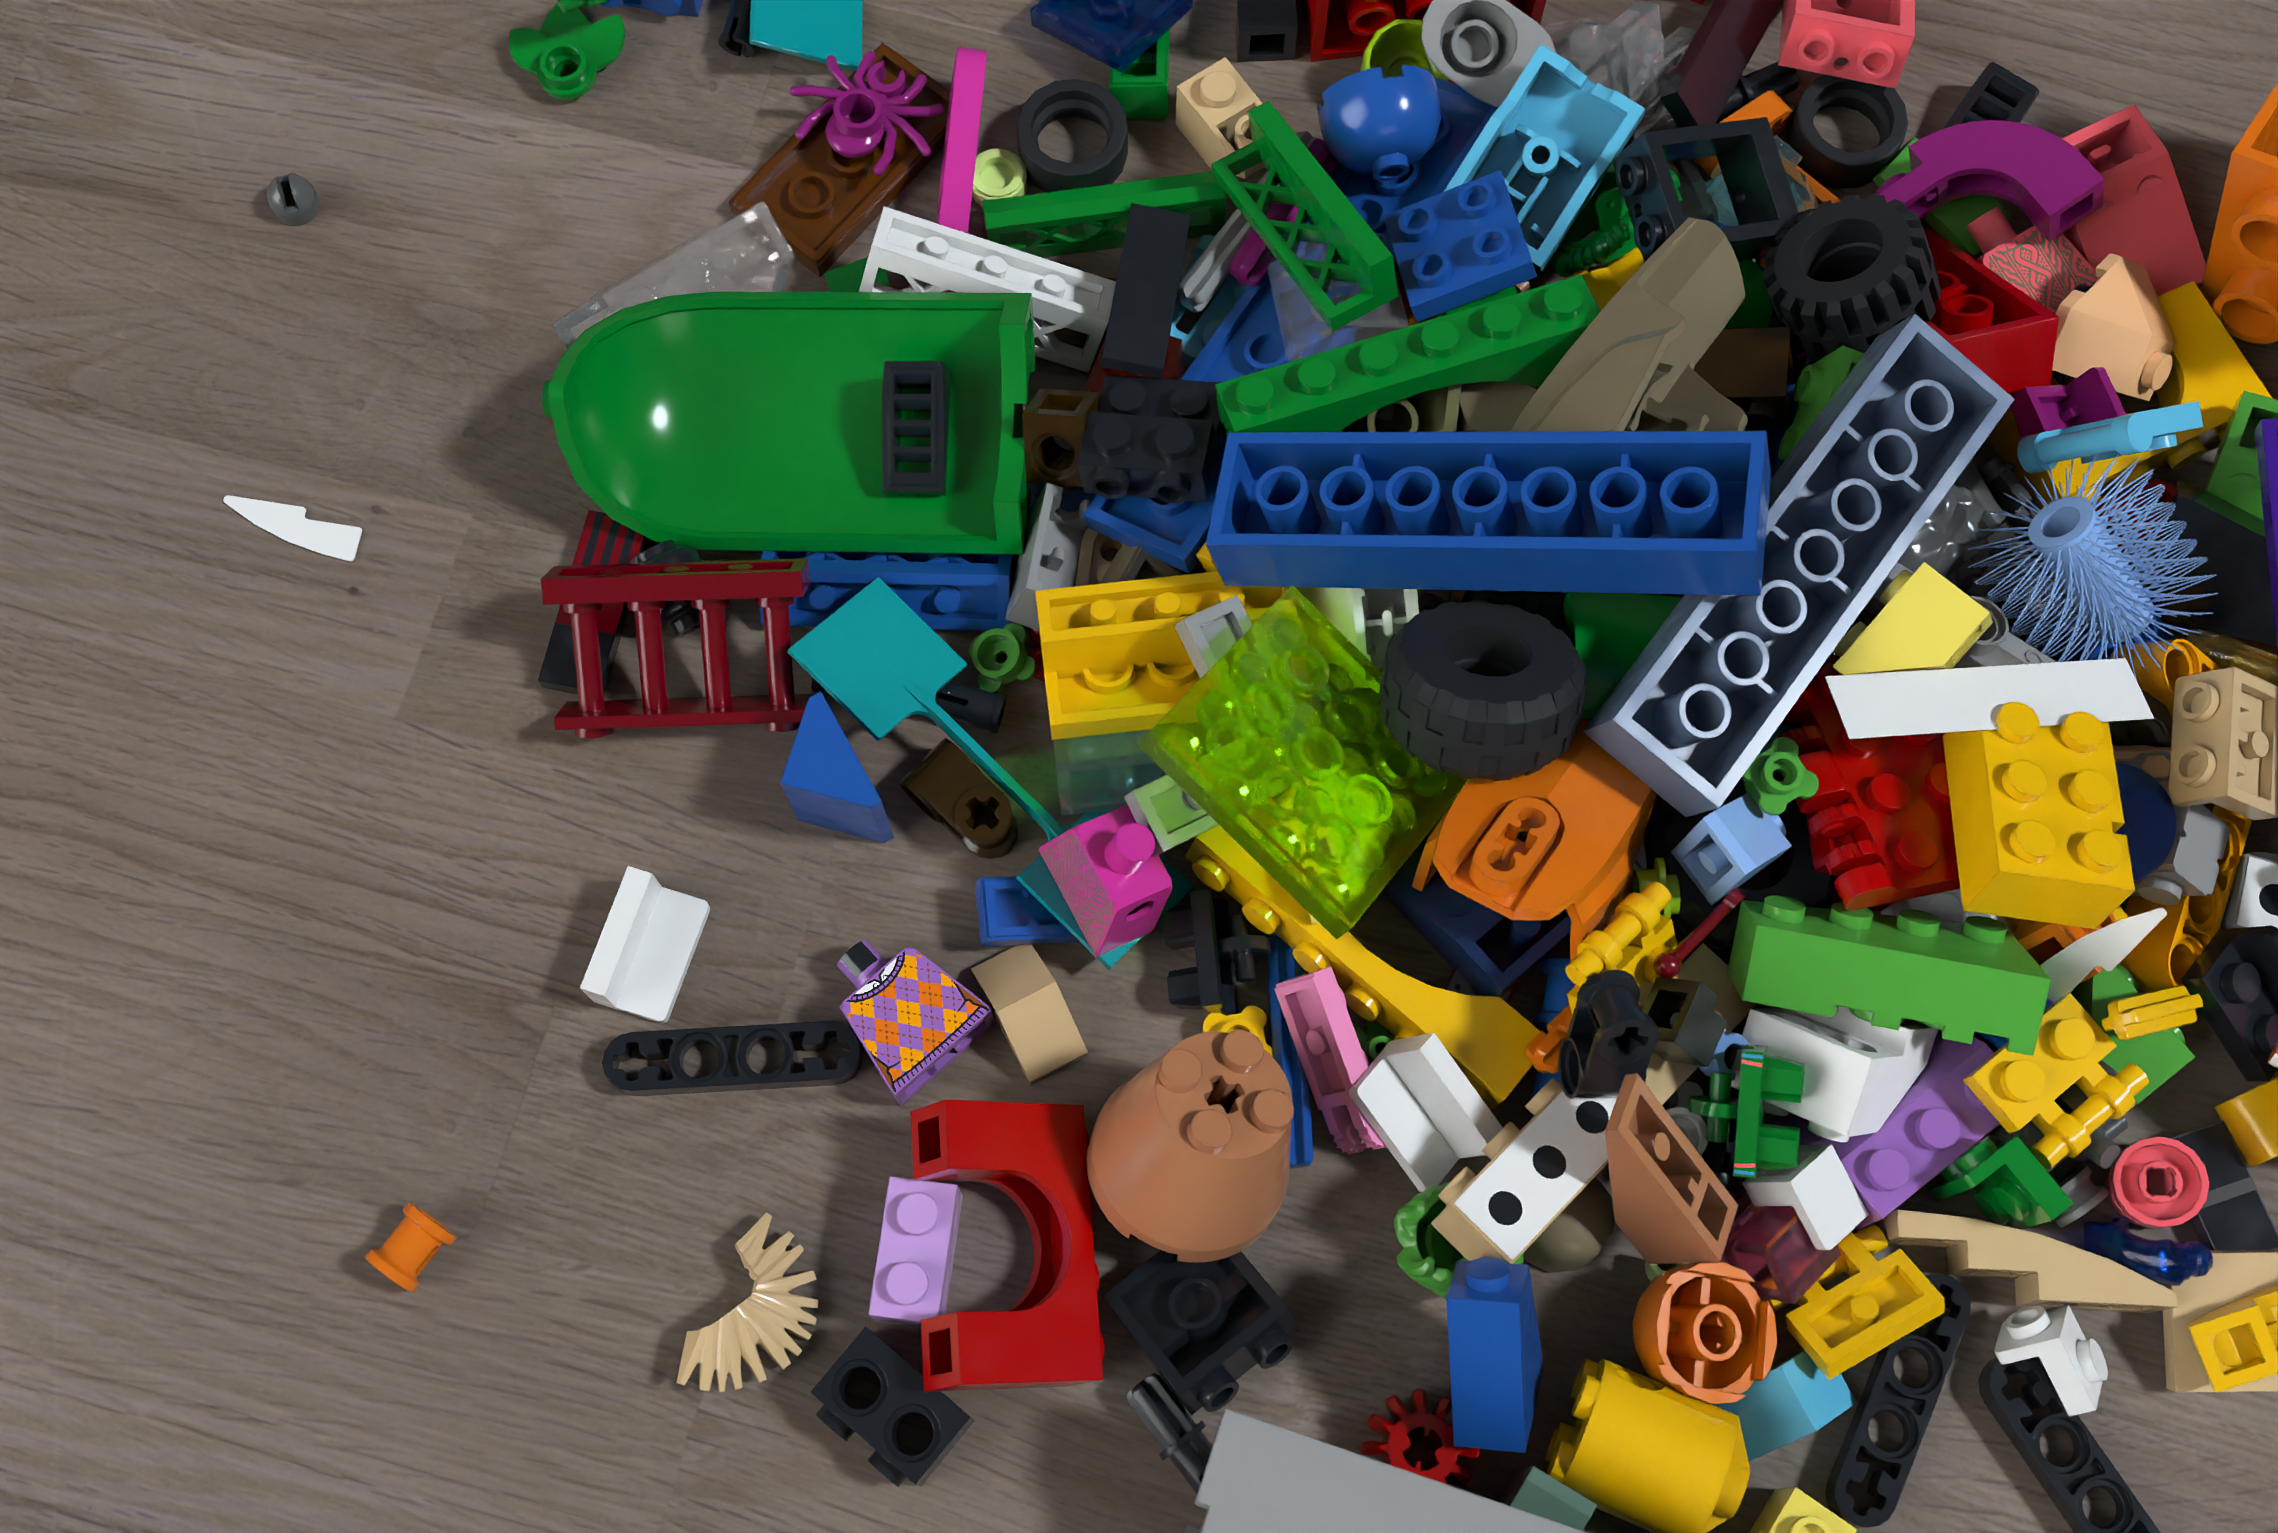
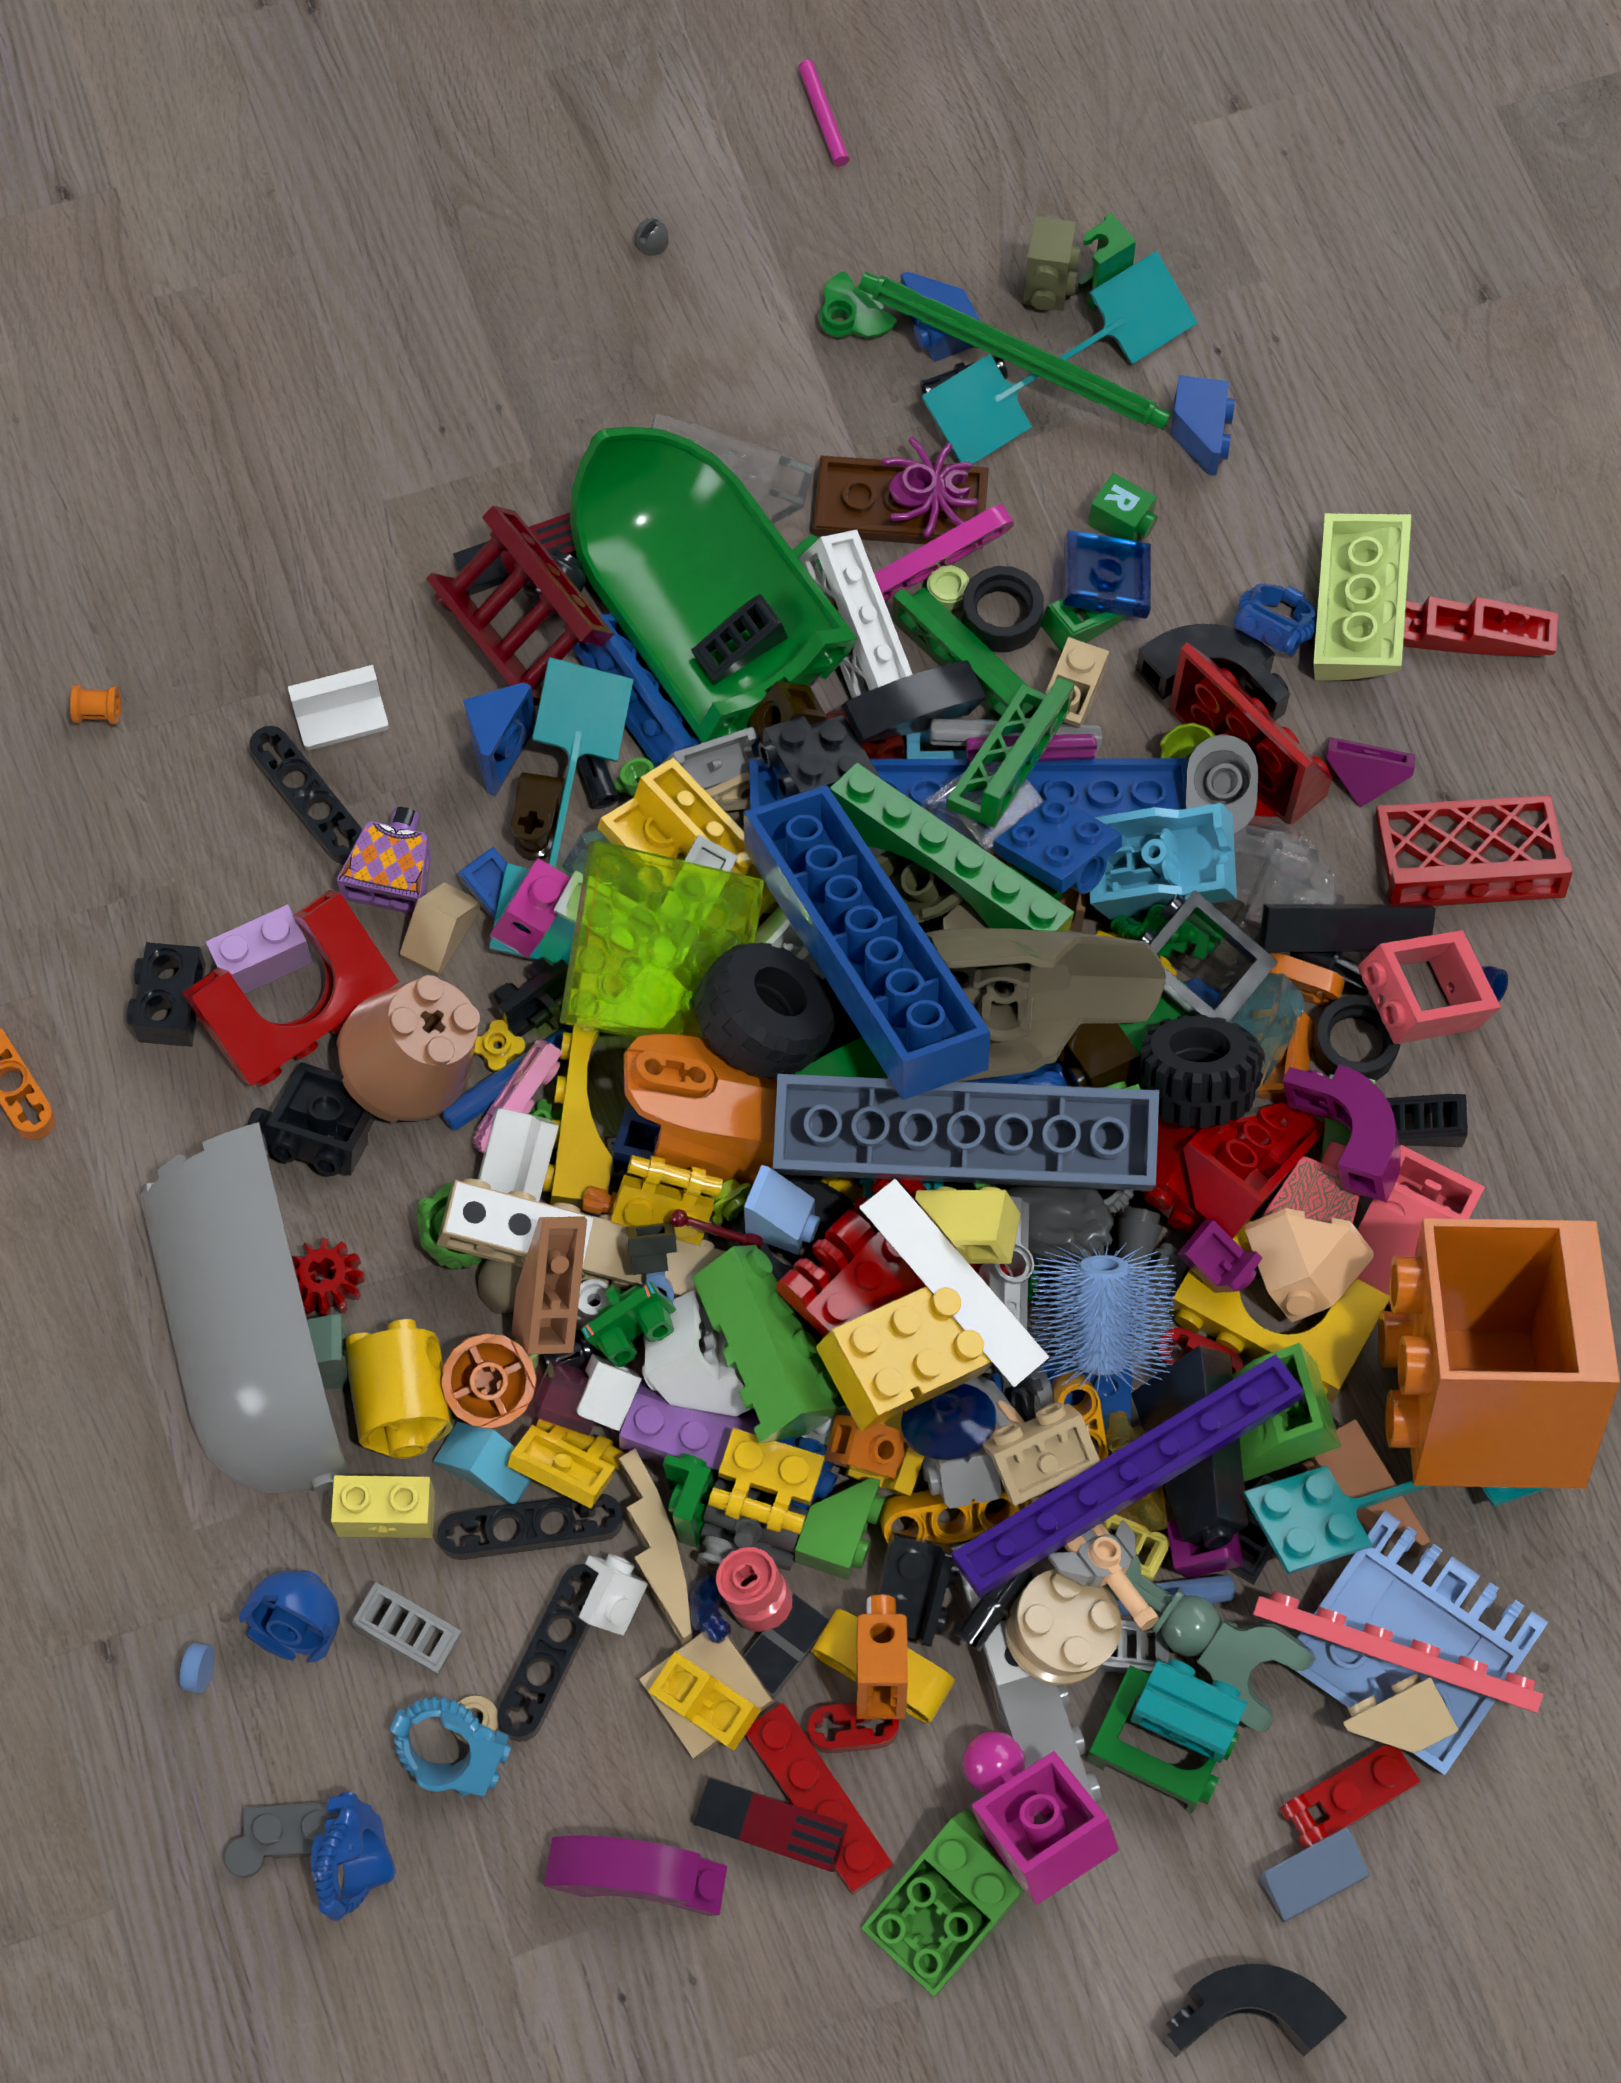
camera: 55 degrees right, 5 degrees down
(291, 525) = (457, 372): white sticker -> none
(755, 1321) = (171, 897): tan hair -> none
(1381, 122) = (1116, 758): blue cylinder -> none
(1493, 1354) = (393, 1263): blue slope -> none
(1606, 1037) = (610, 1205): black piece -> none
(1775, 795) = (828, 1214): bright green plate -> none
(2100, 948) = (852, 1447): white sticker -> none
(2108, 437) = (1195, 1272): medium azure plate -> none
(2152, 1012) = (849, 1514): yellow axle -> none

